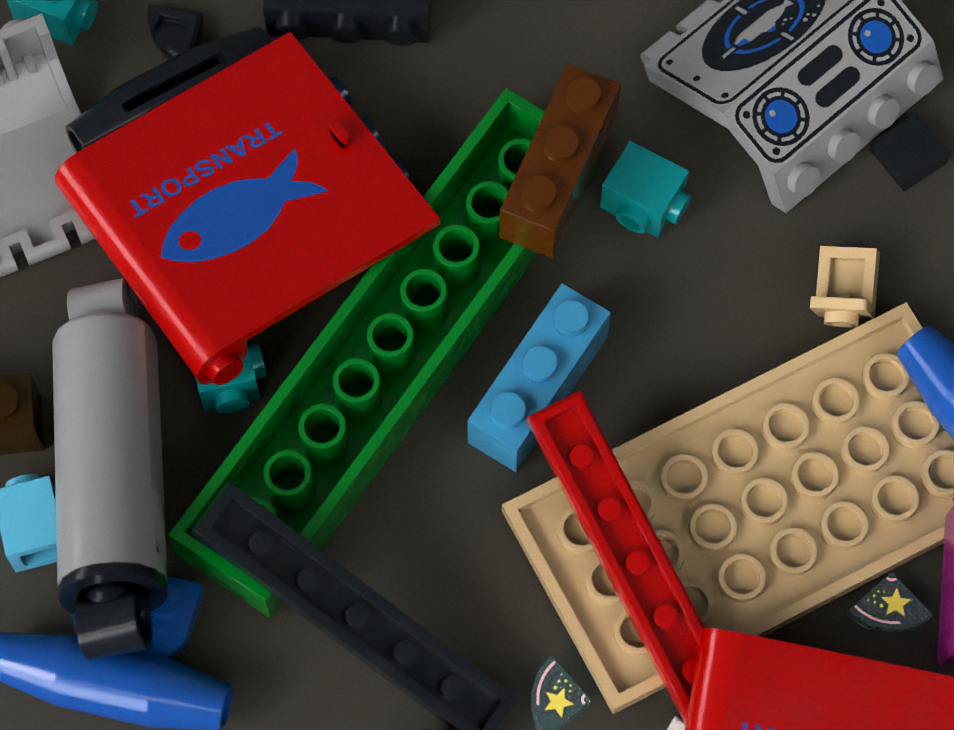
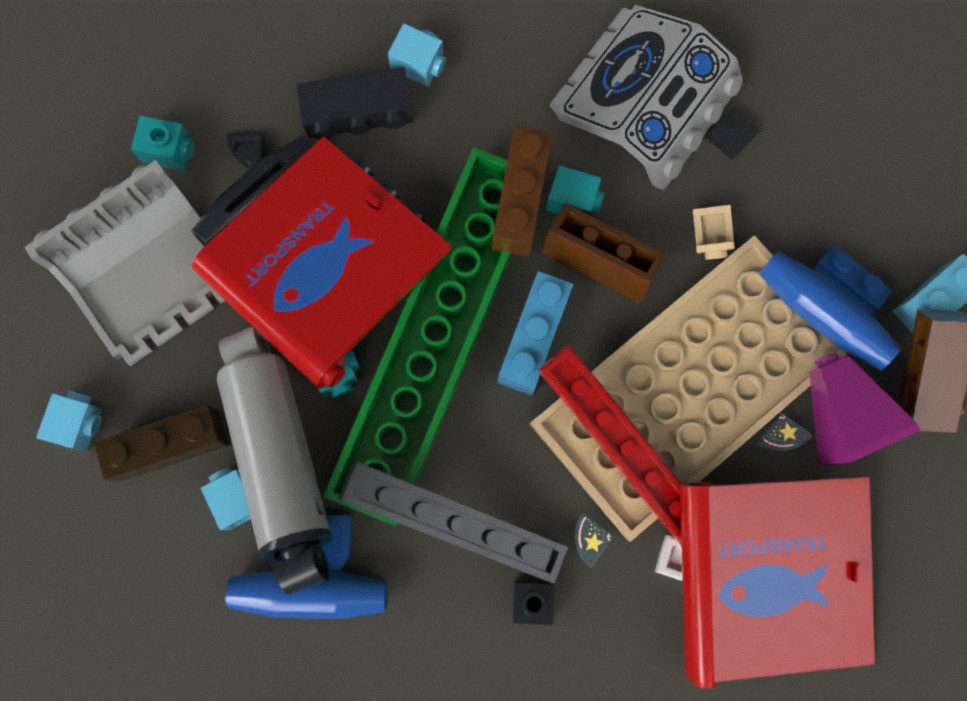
camera: 15 degrees left, 10 degrees up
(667, 281) = (602, 253): none -> reddish brown brick

